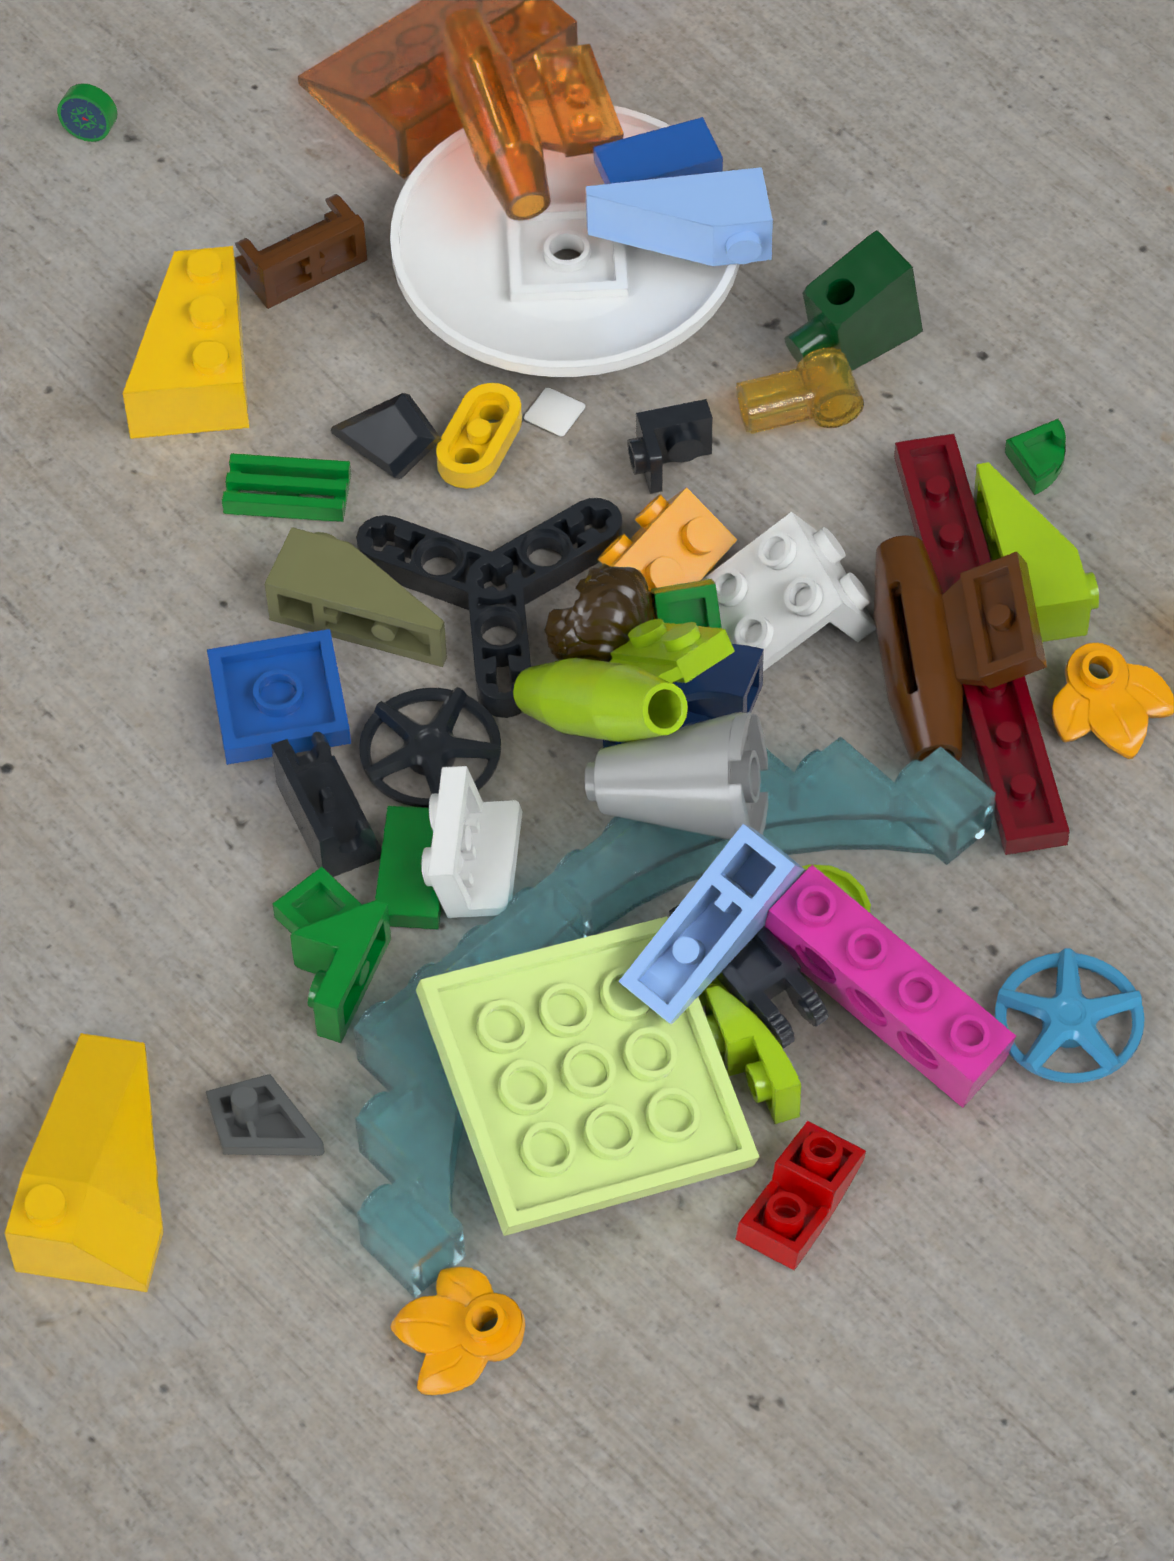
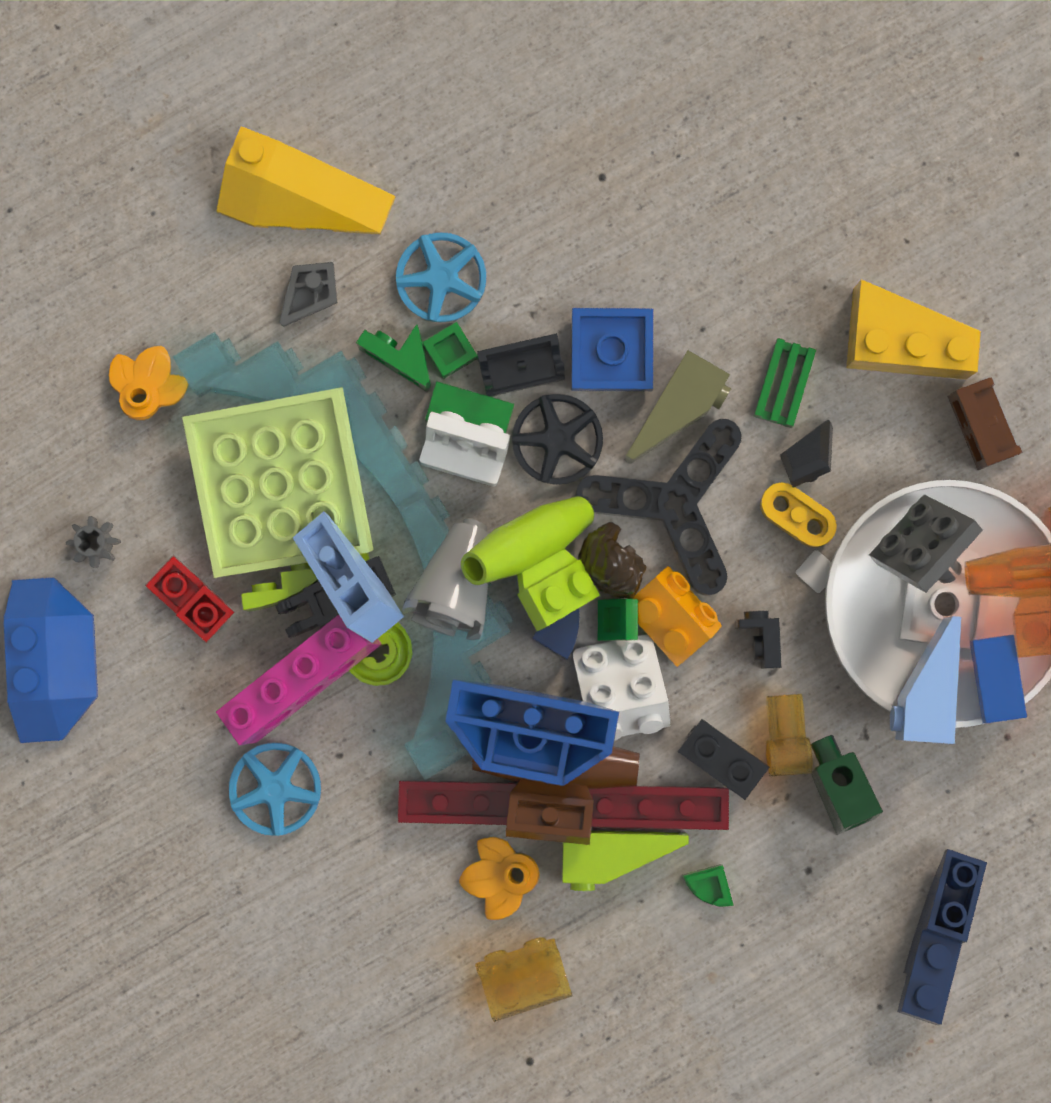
camera: 100 degrees right, 30 degrees up
(203, 944) = (441, 276): none -> dark azure wheel
(508, 240) = (926, 544): none -> dark grey plate
(745, 1344) = (82, 544): none -> dark grey gear
(853, 456) = (723, 759): none -> black hinge
(882, 646) = (530, 731): none -> blue wedge
(953, 1377) = (48, 659): none -> blue wedge
(1010, 190) = (939, 936): none -> dark blue slope

